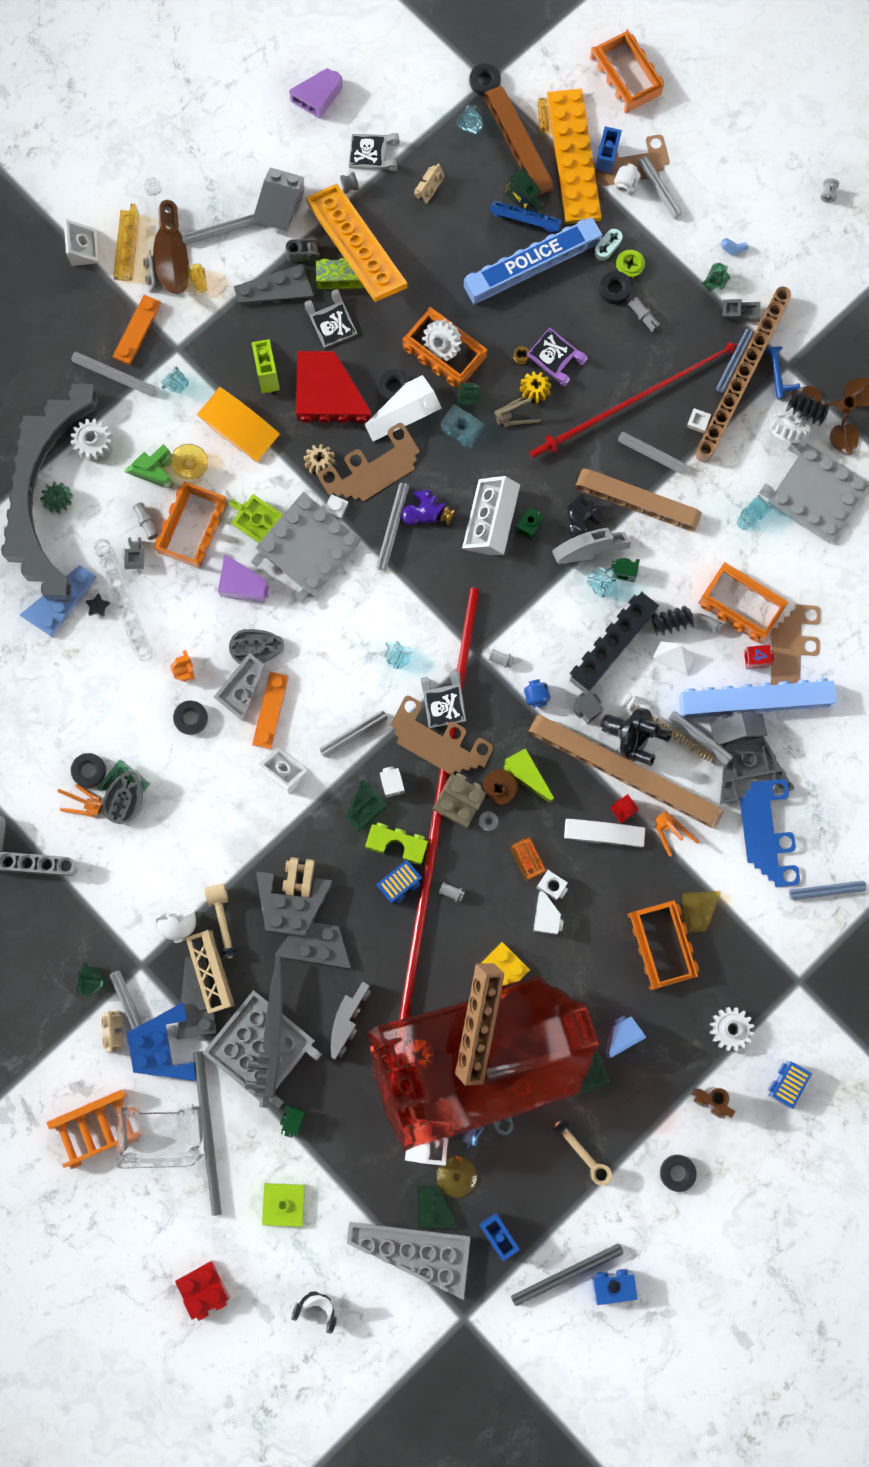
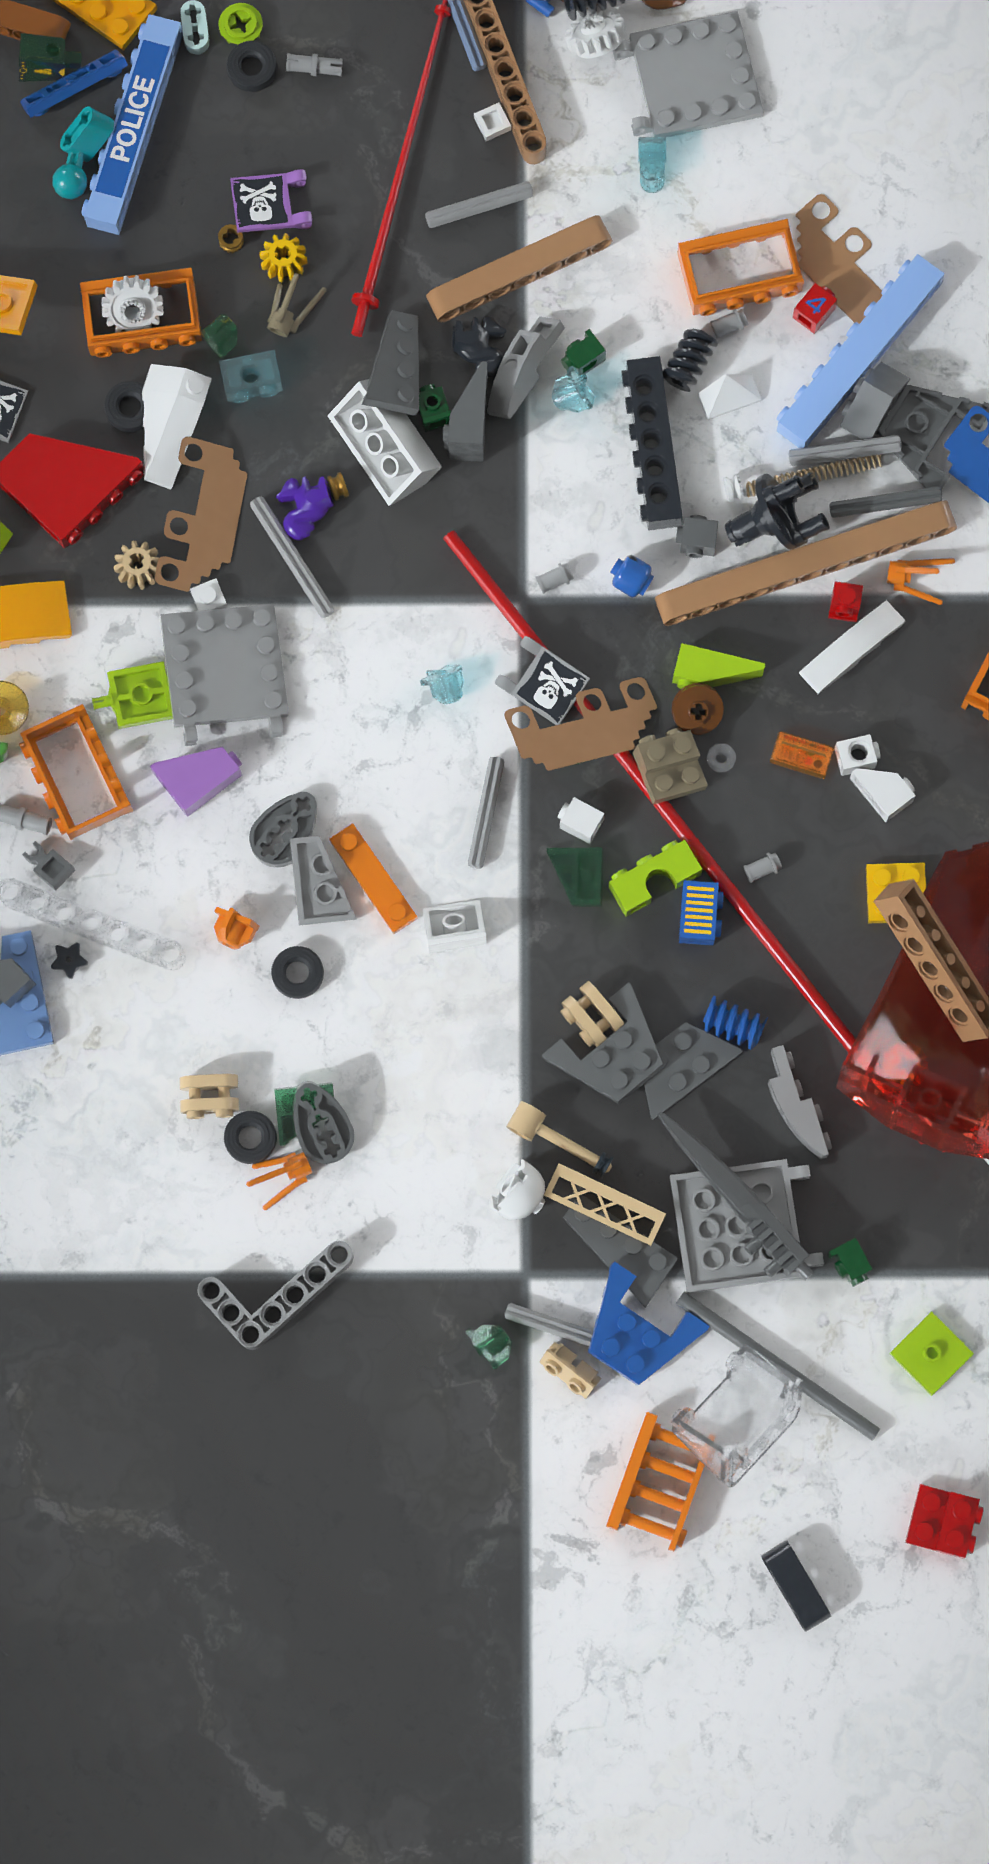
camera: 40 degrees left, 0 degrees up
(78, 731) = (196, 1107): none -> tan brick
(102, 1245) = (796, 1586): none -> black beam
(359, 950) = (734, 1023): none -> blue piece
(498, 245) = (81, 143): none -> teal beam
(531, 487) = (396, 367): none -> dark grey wing
(538, 544) = (466, 428): none -> dark grey slope
(693, 781) = (885, 502): none -> dark grey axle

